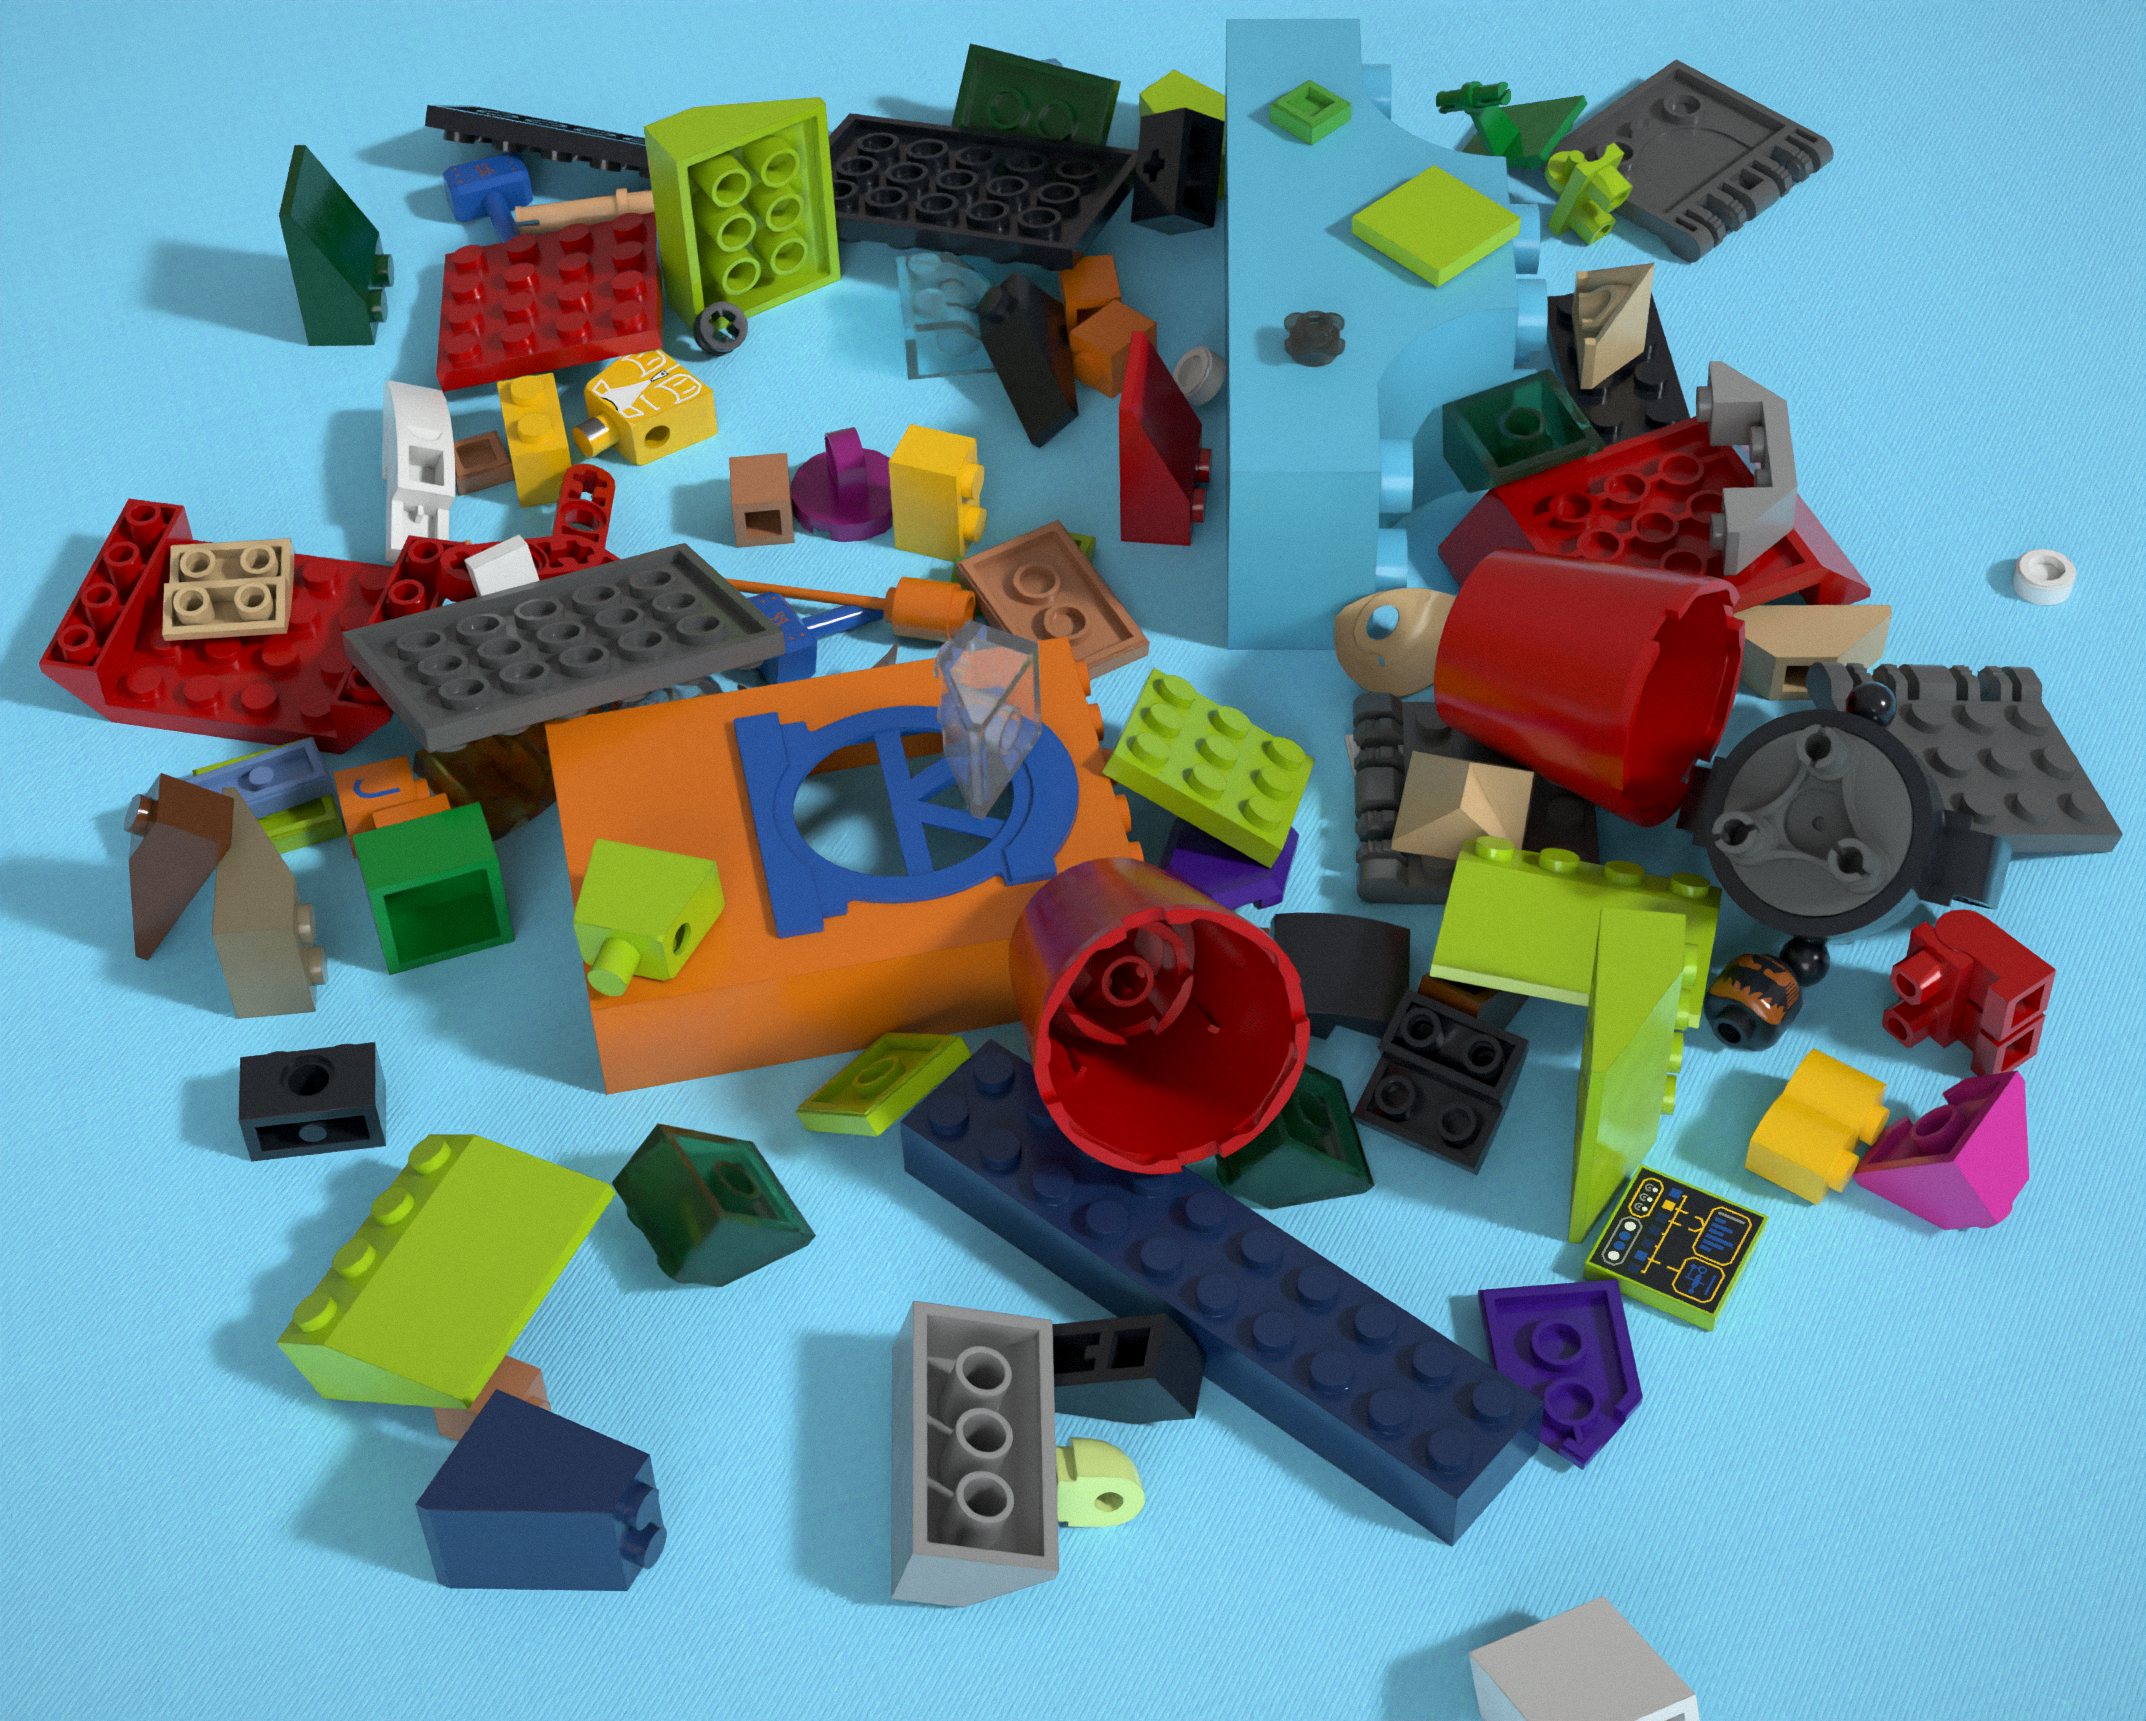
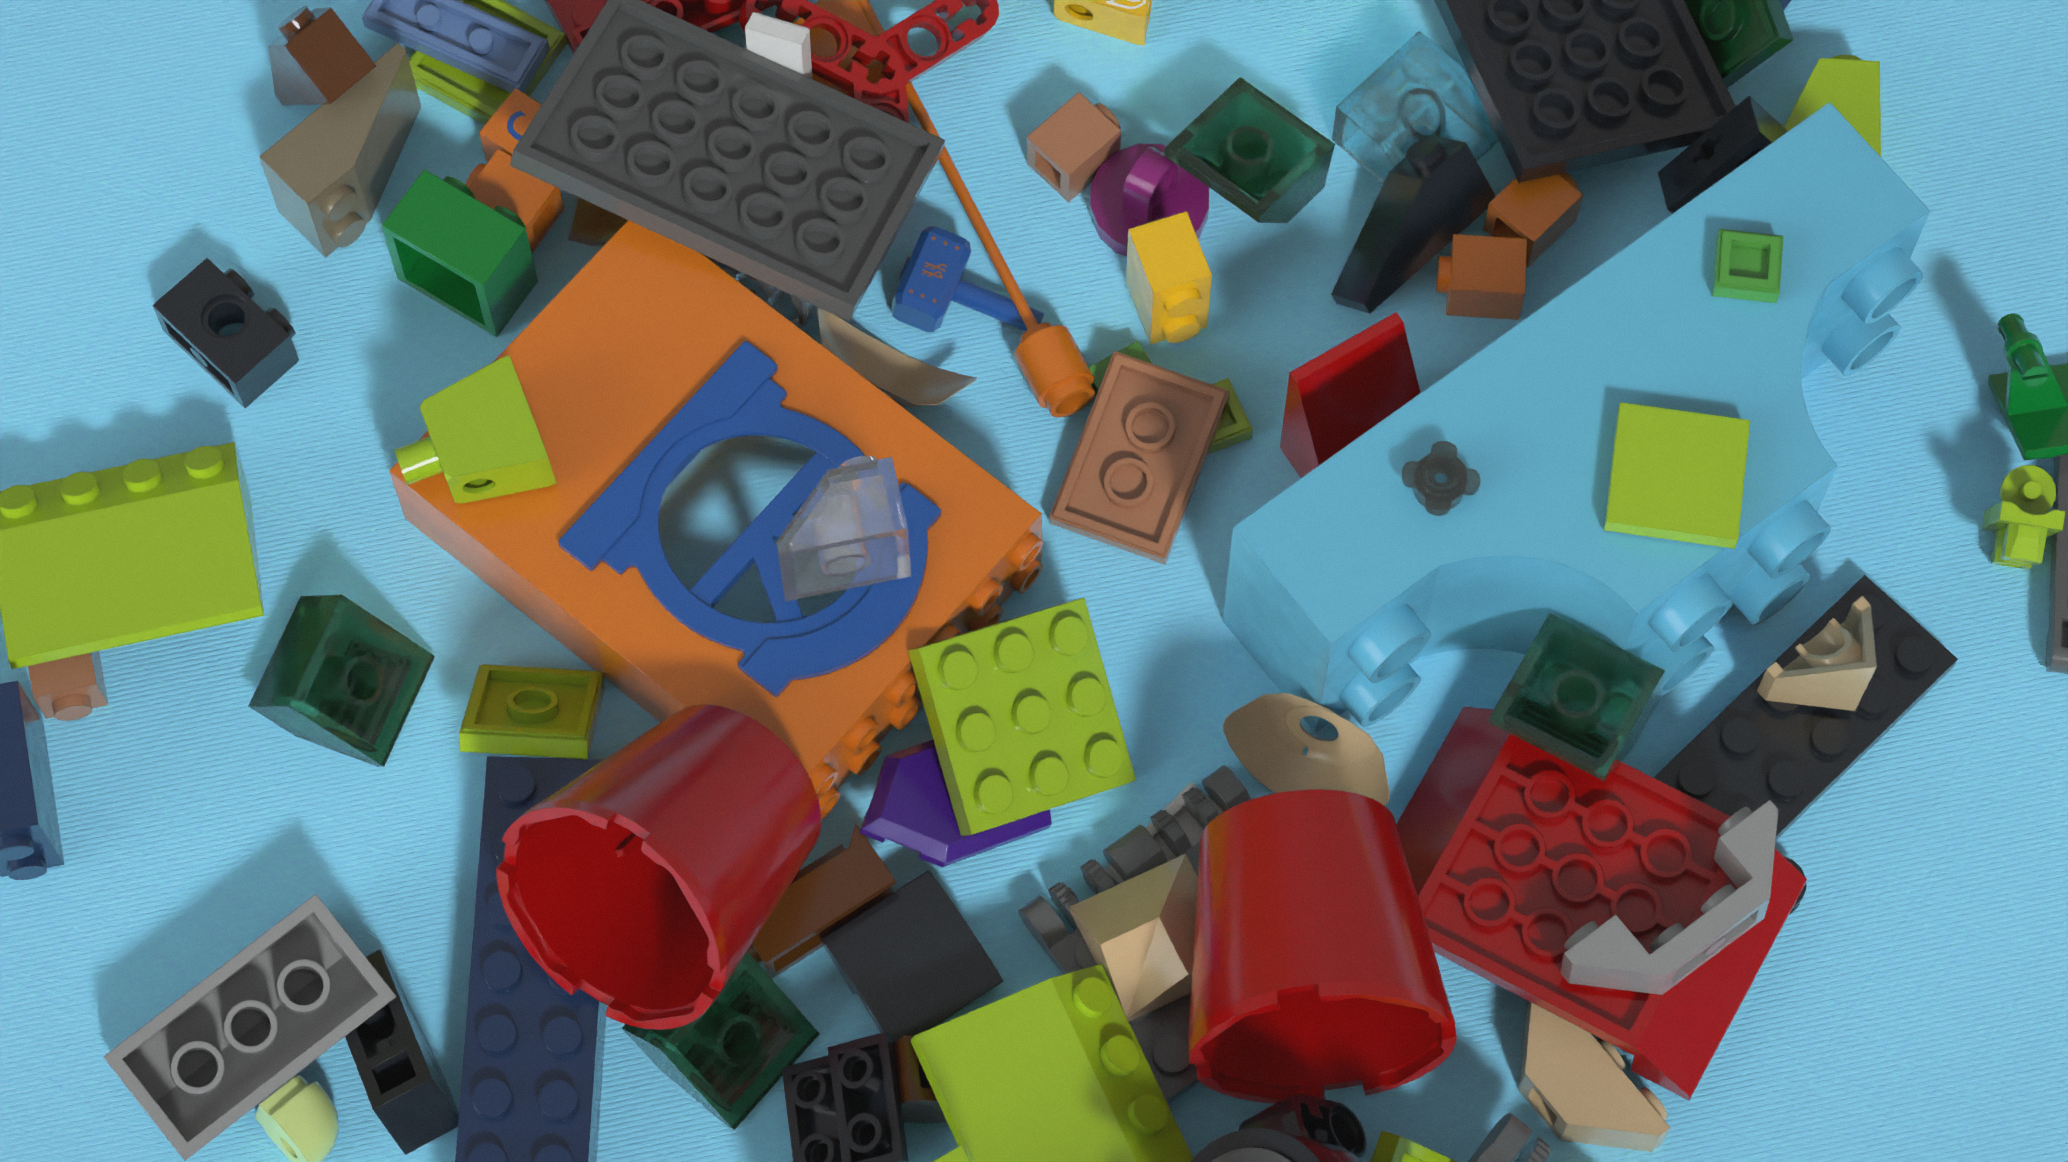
camera: 50 degrees right, 20 degrees up
(889, 391) = (1254, 154): none -> clear green slope

